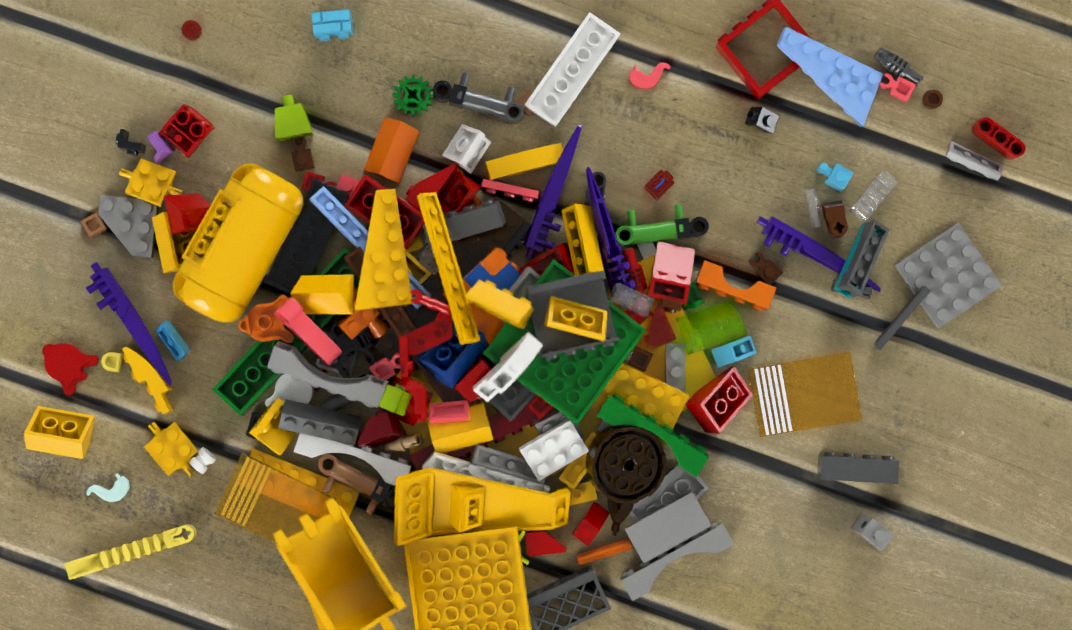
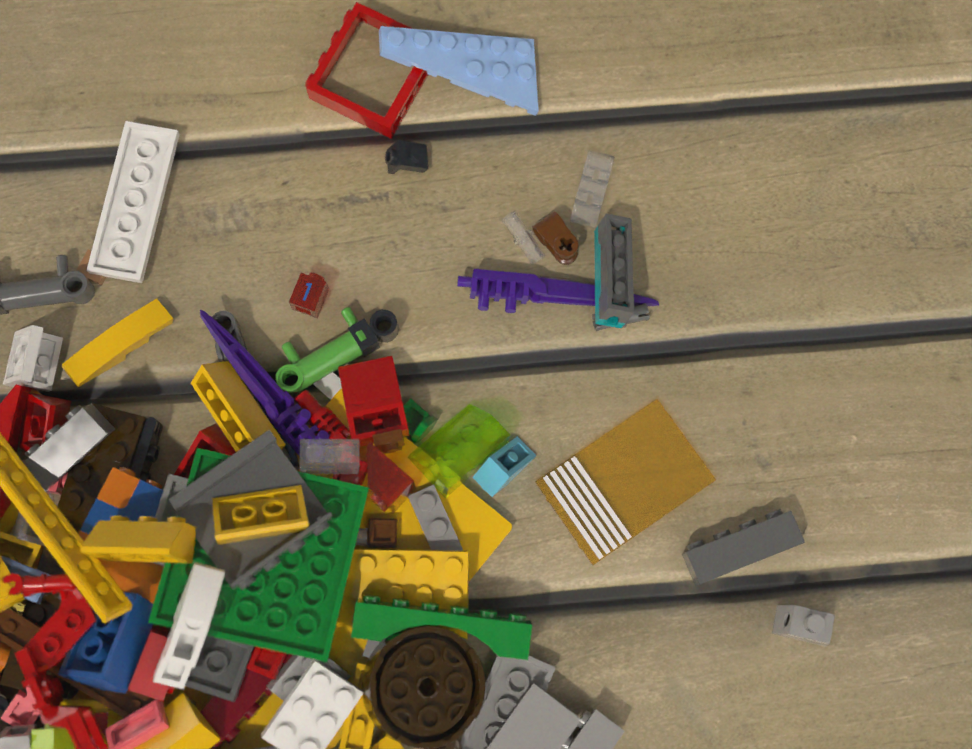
camera: 20 degrees left, 10 degrees down
(510, 190) = (112, 388): coral plate -> none
(543, 216) = (171, 400): dark purple piece -> none
(644, 81) = (236, 177): coral piece -> none
(719, 401) = (514, 541): red slope -> none
(758, 295) = (432, 384): orange arch -> none
(767, 270) = (500, 343): reddish brown plate -> none
(836, 177) = (534, 184): medium azure brick -> none
(897, 66) = (546, 22): dark grey hinge -> none
(900, 88) = (564, 47): coral plate -> none
(901, 317) = (701, 322): dark grey tile -> none
(932, 99) = (609, 44): reddish brown tile -> none
(951, 271) = (734, 246): light grey plate -> none
(974, 161) = (697, 93): light grey plate -> none
(1008, 139) = (725, 48): red beam -> none

